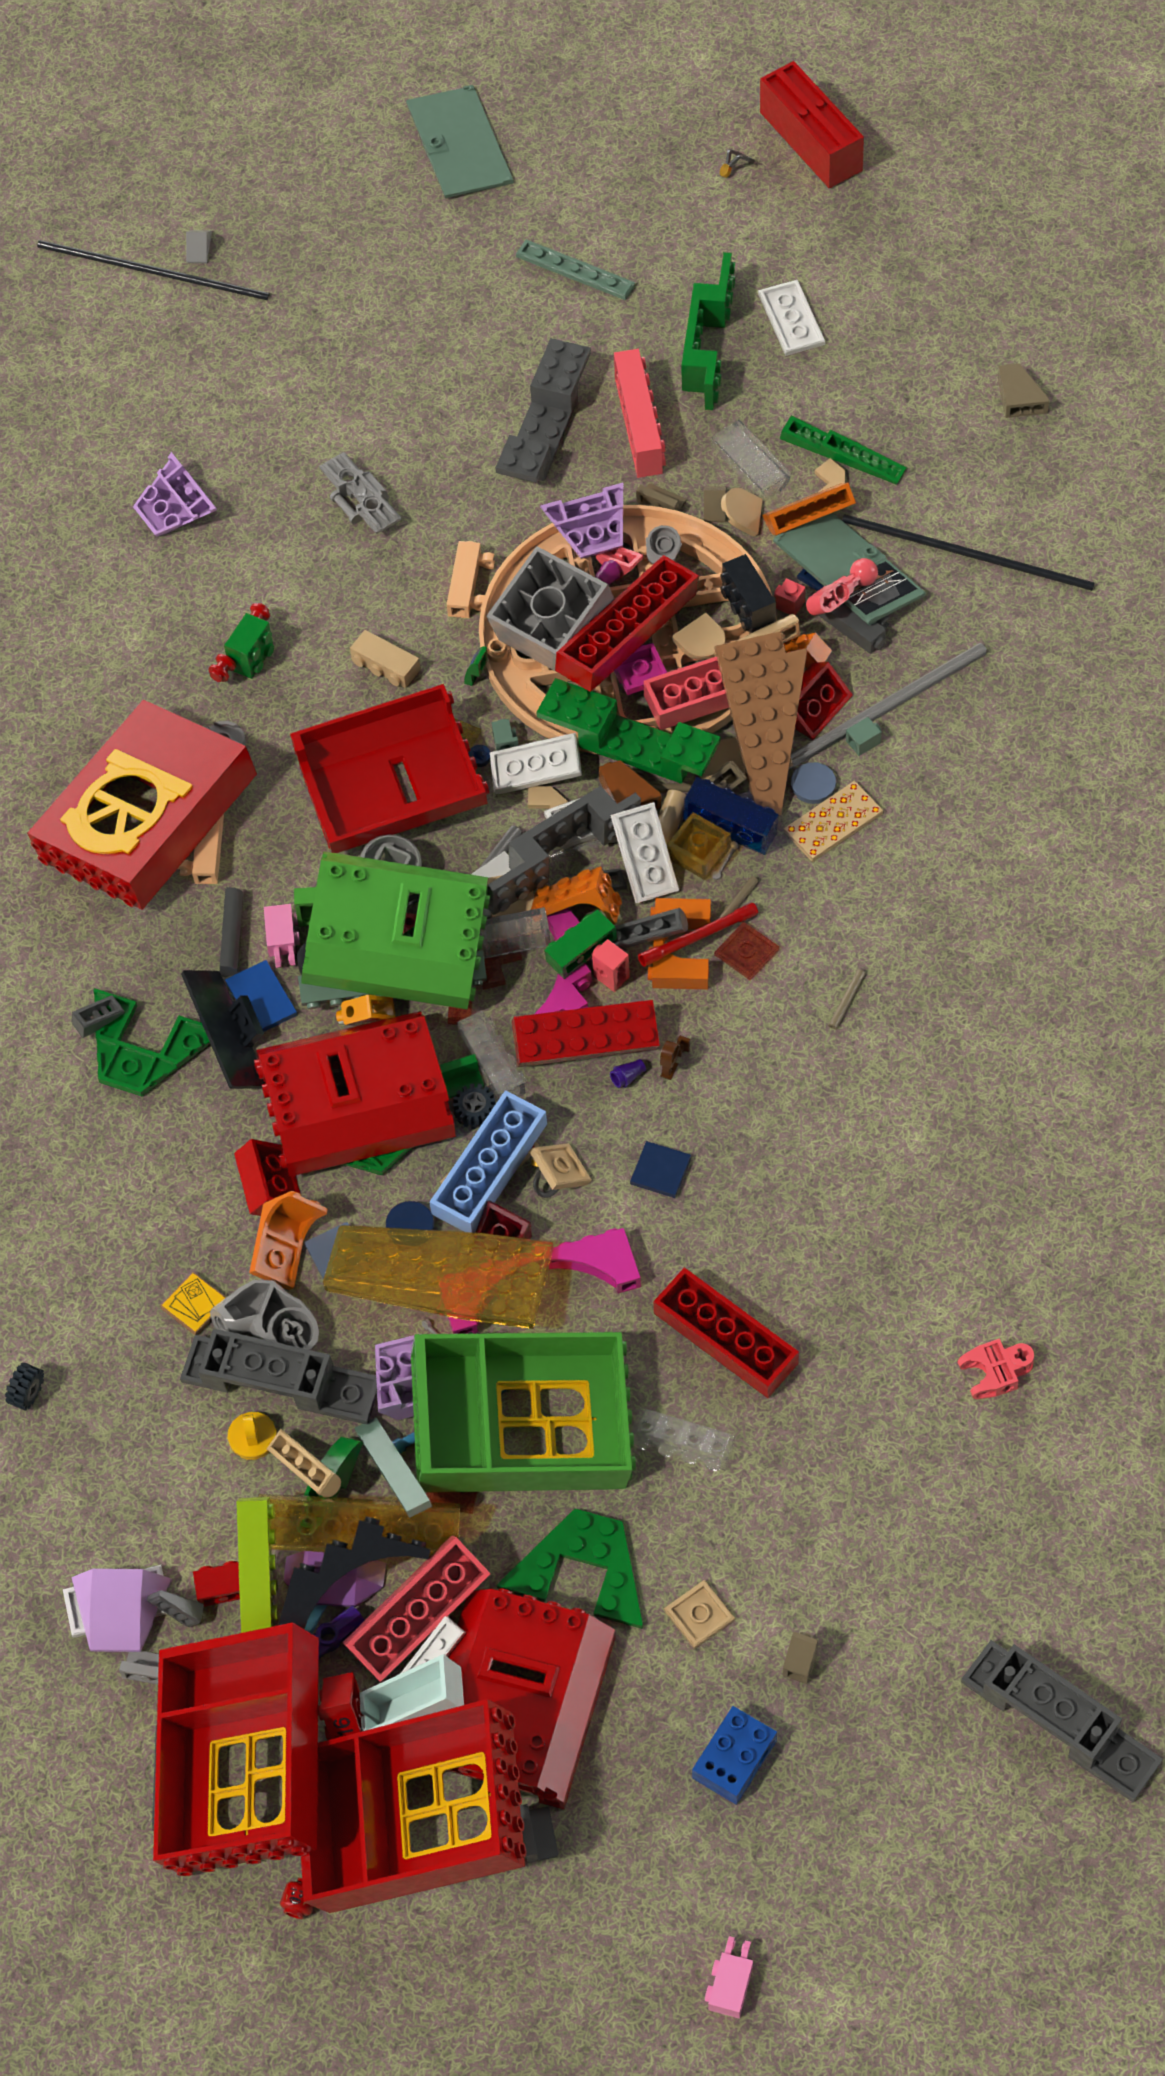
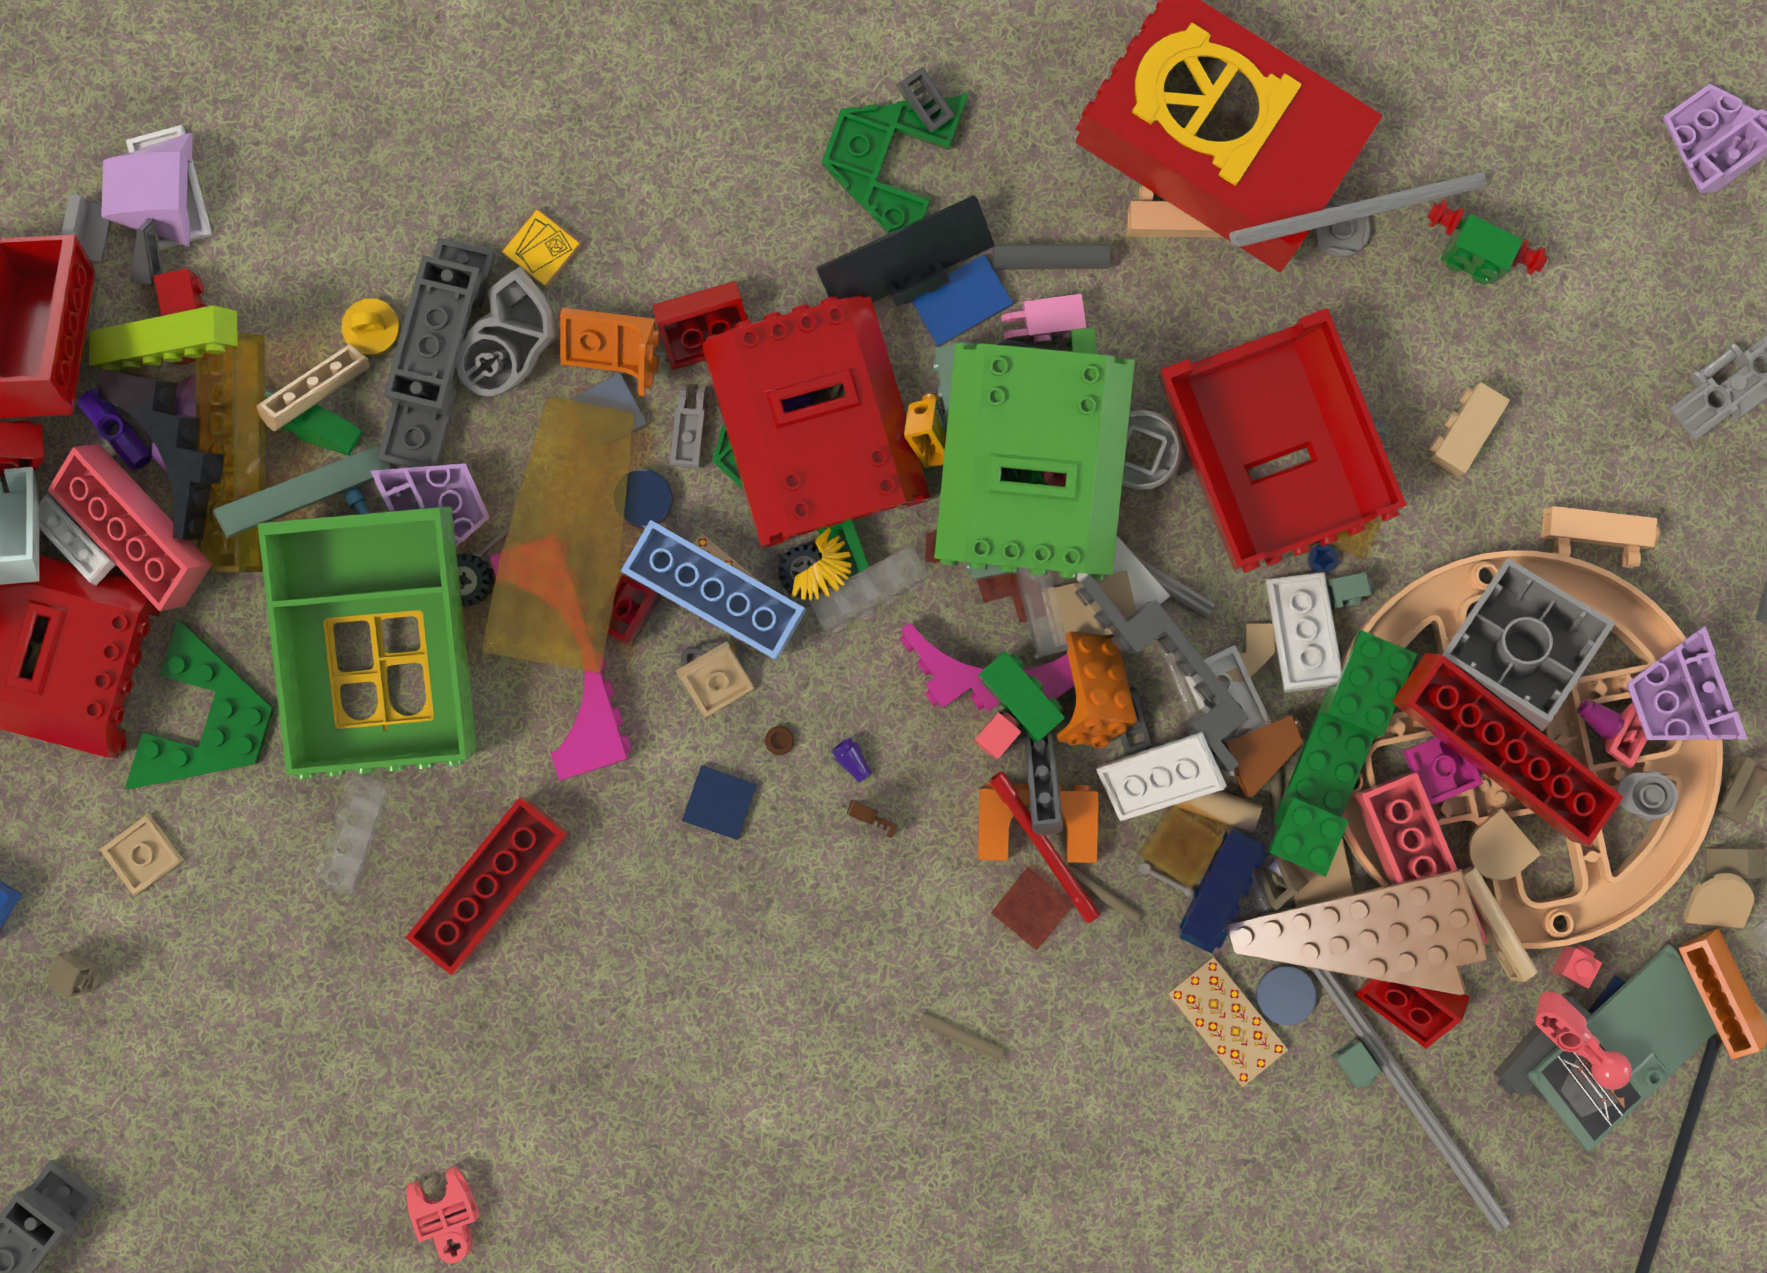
camera: 80 degrees right, 25 degrees up
(24, 1386) = (424, 56): black wheel -> none
(216, 712) = (1356, 210): none -> light grey axle
(354, 1191) = (688, 431): none -> light grey hinge
(476, 666) = (1454, 549): green slope -> none
(476, 1079) = (827, 570): none -> yellow hair
(585, 1033) = (896, 706): red brick -> none
(611, 1126) = (779, 740): none -> reddish brown tile
(747, 594) = (1563, 912): black brick -> none
(816, 648) = (1489, 989): orange slope -> none

